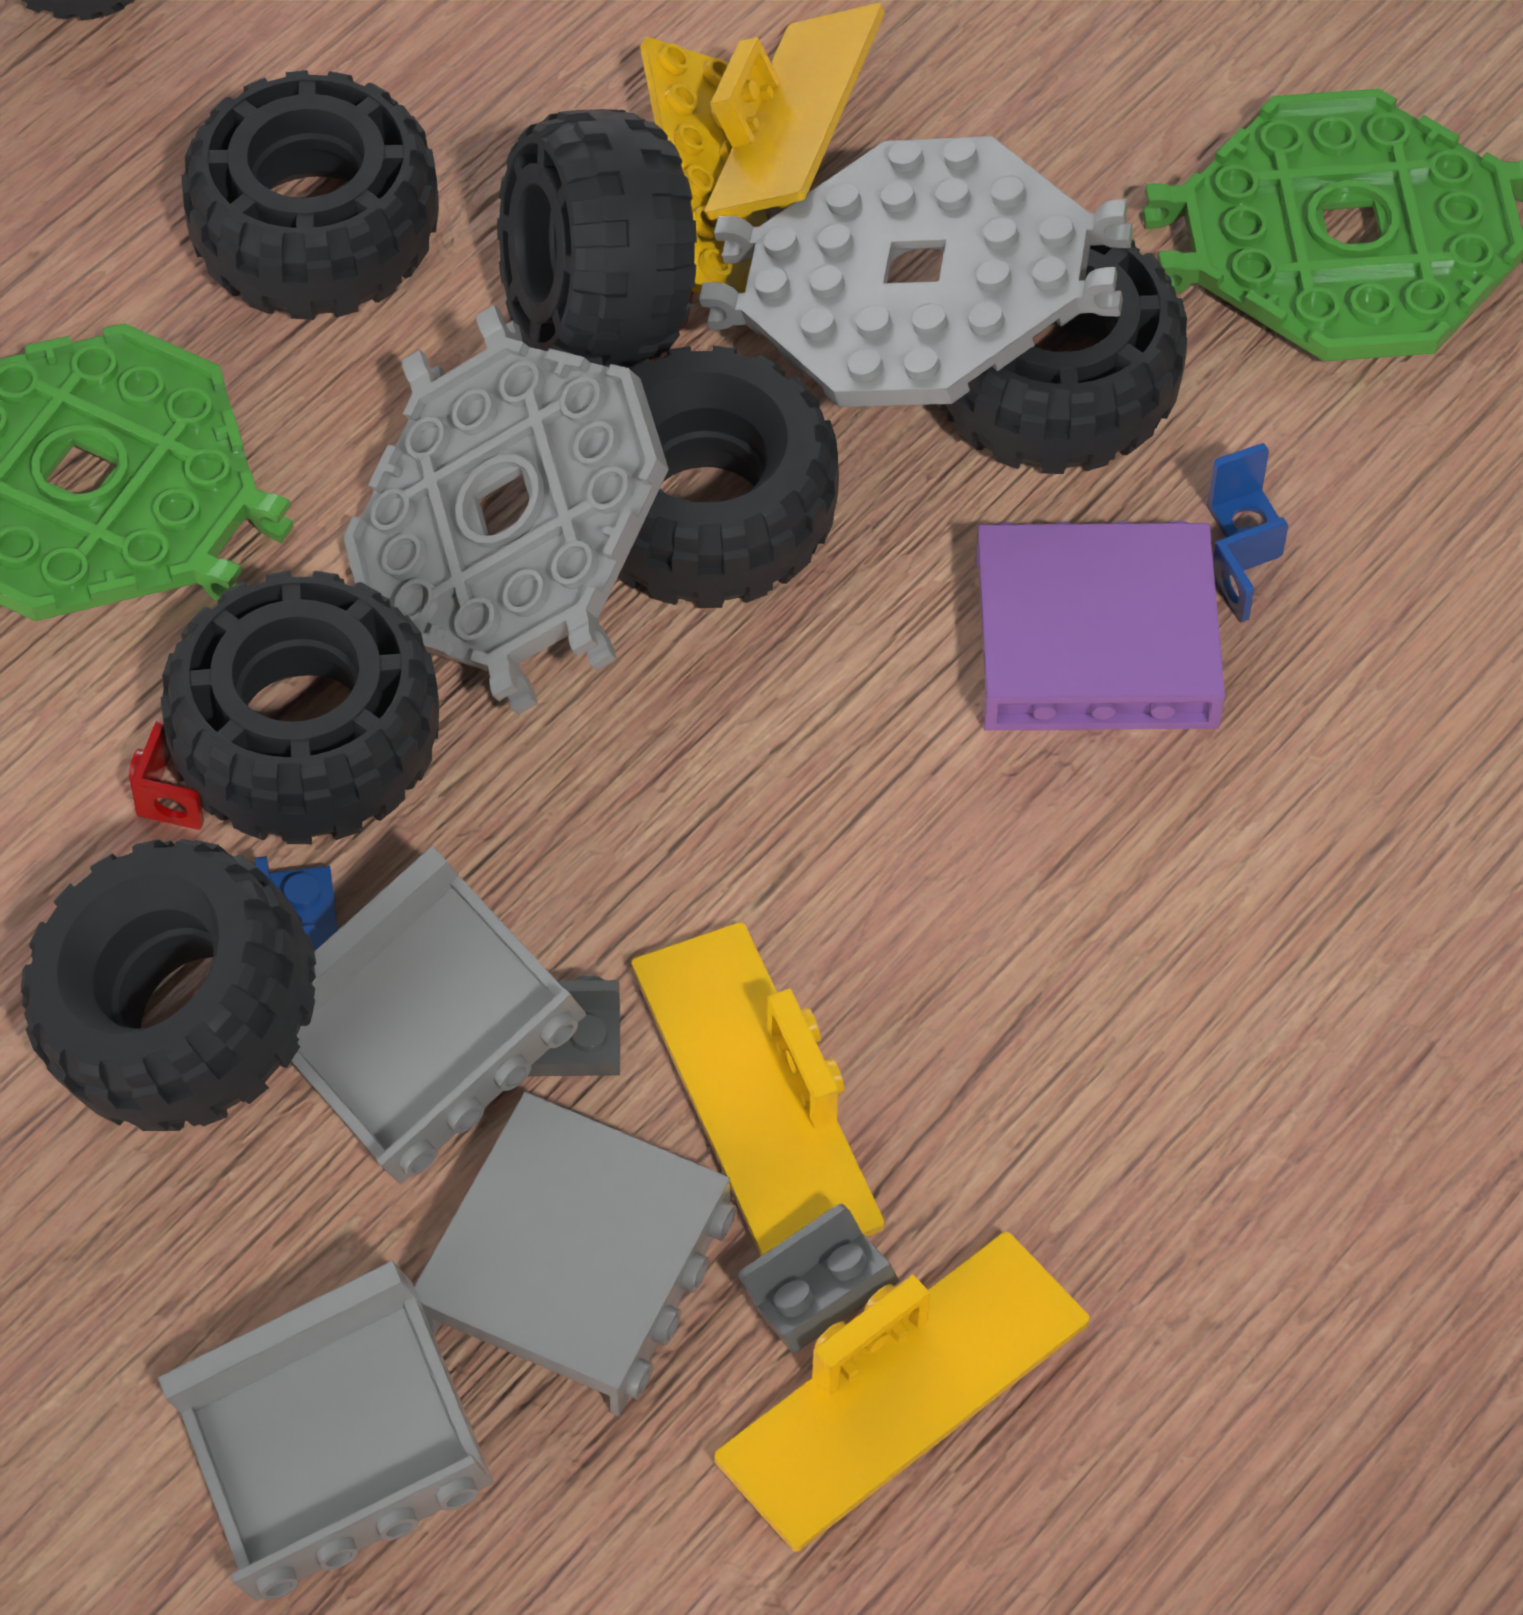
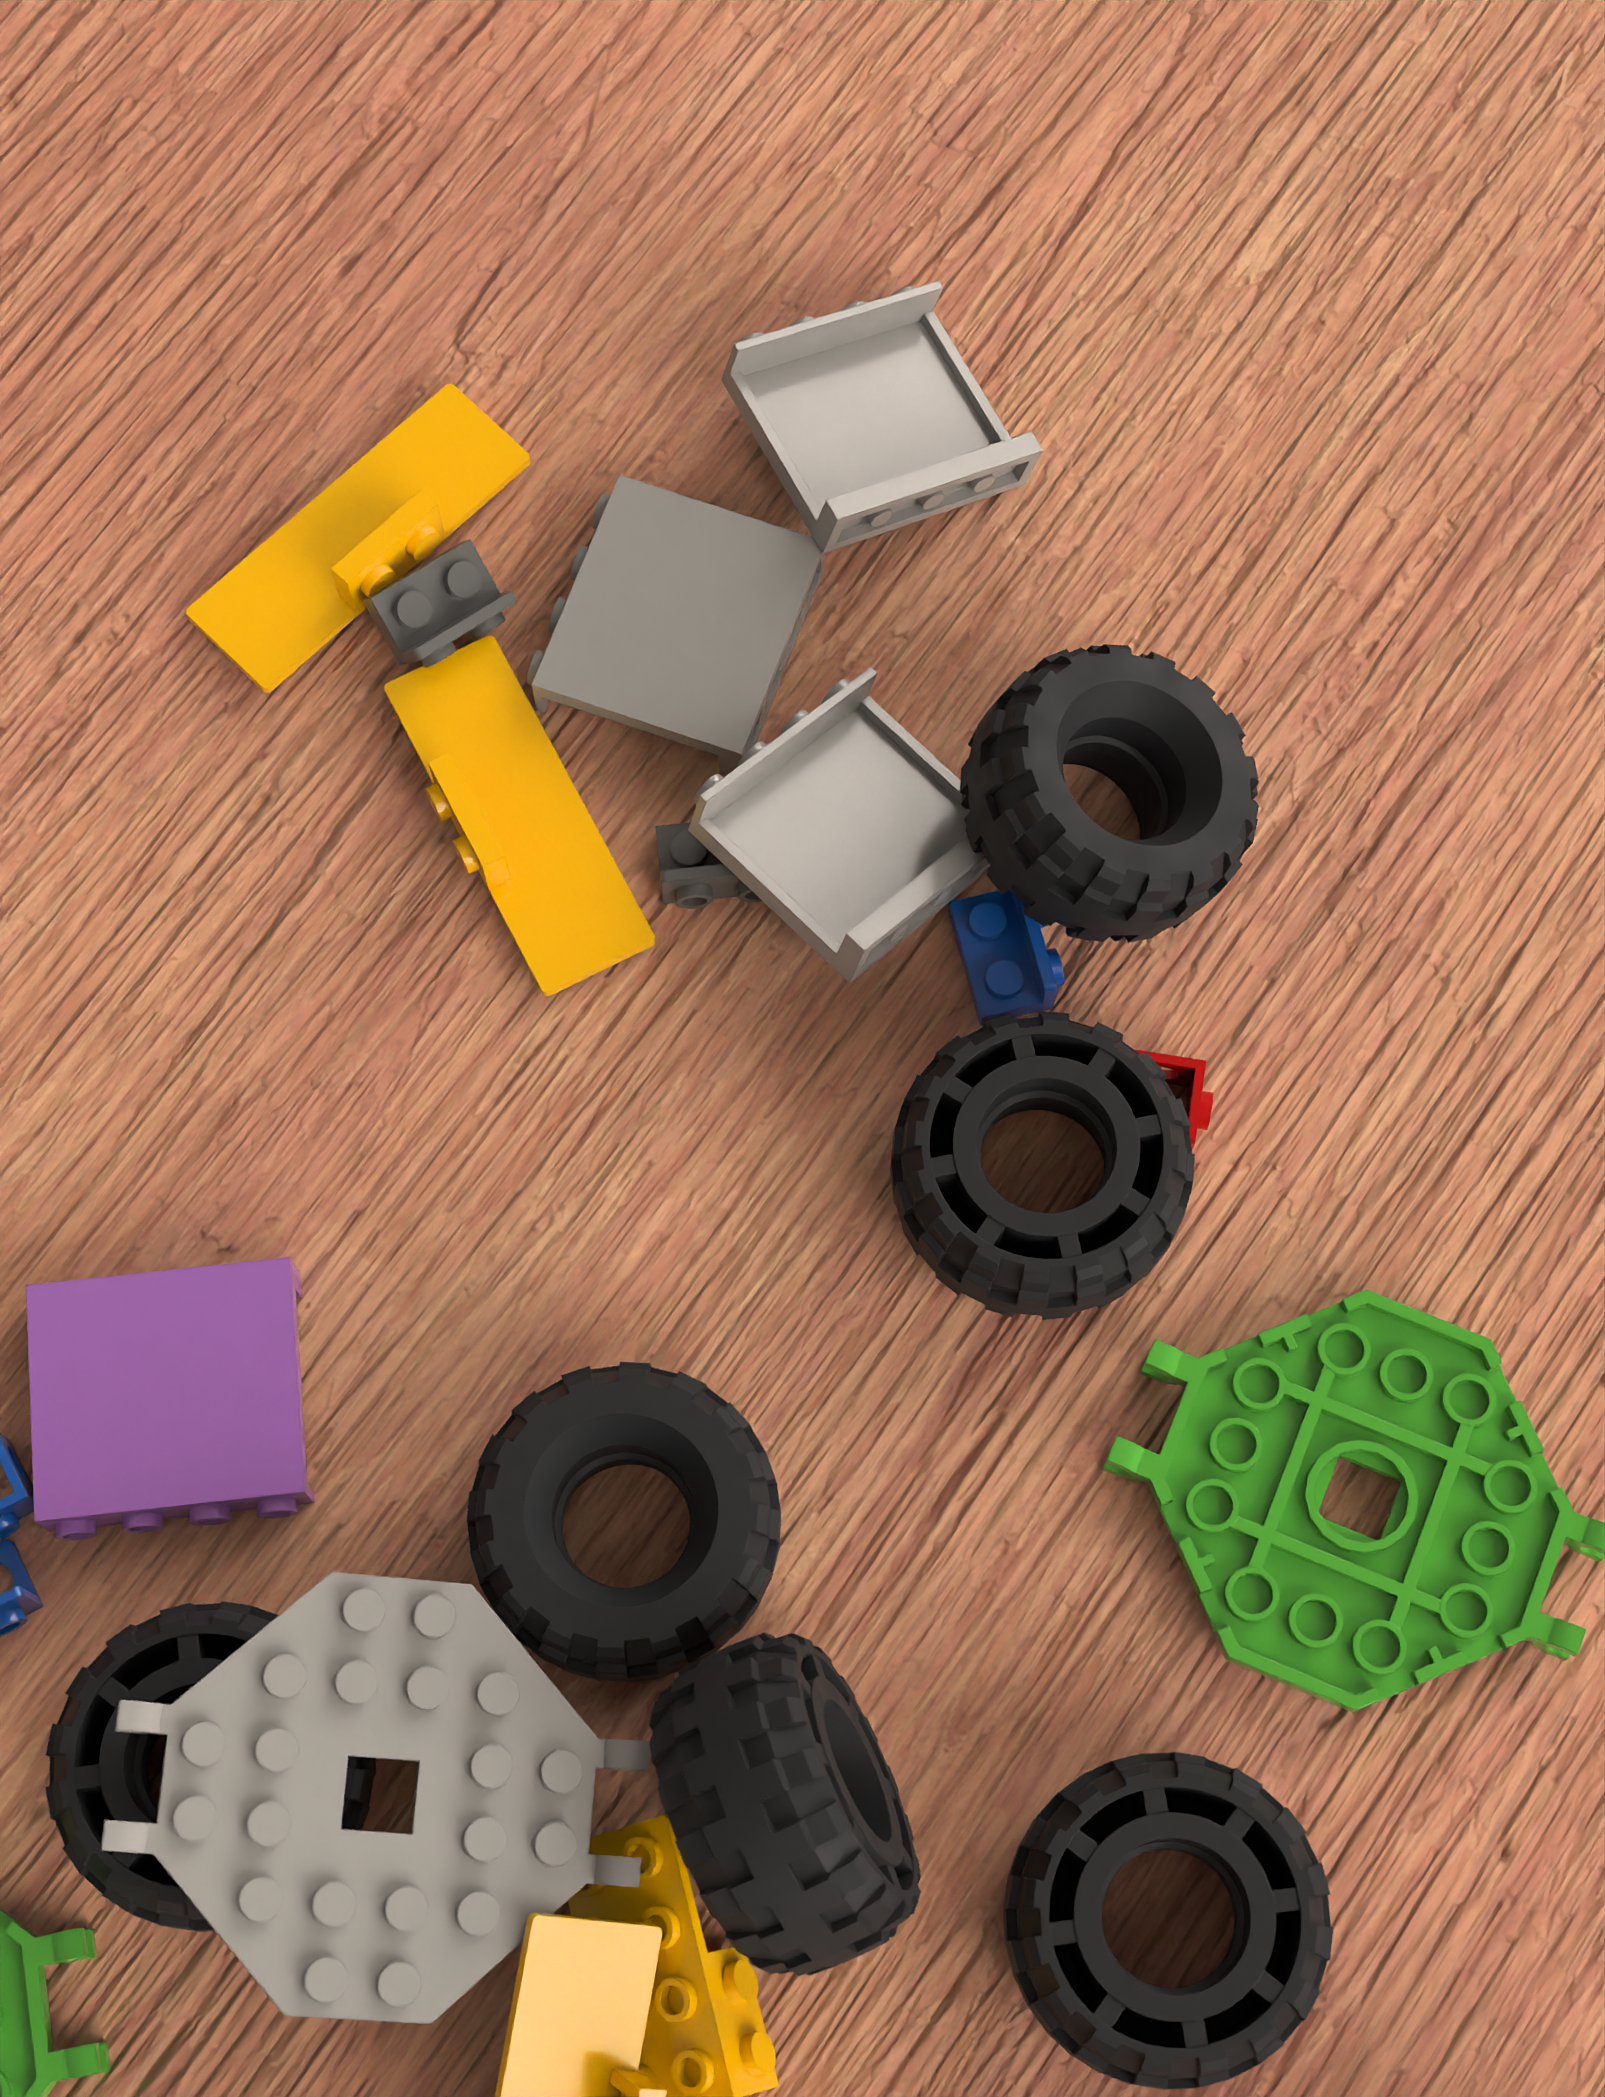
camera: 175 degrees right, 15 degrees up
(590, 478) = (863, 1532): light grey plate -> none

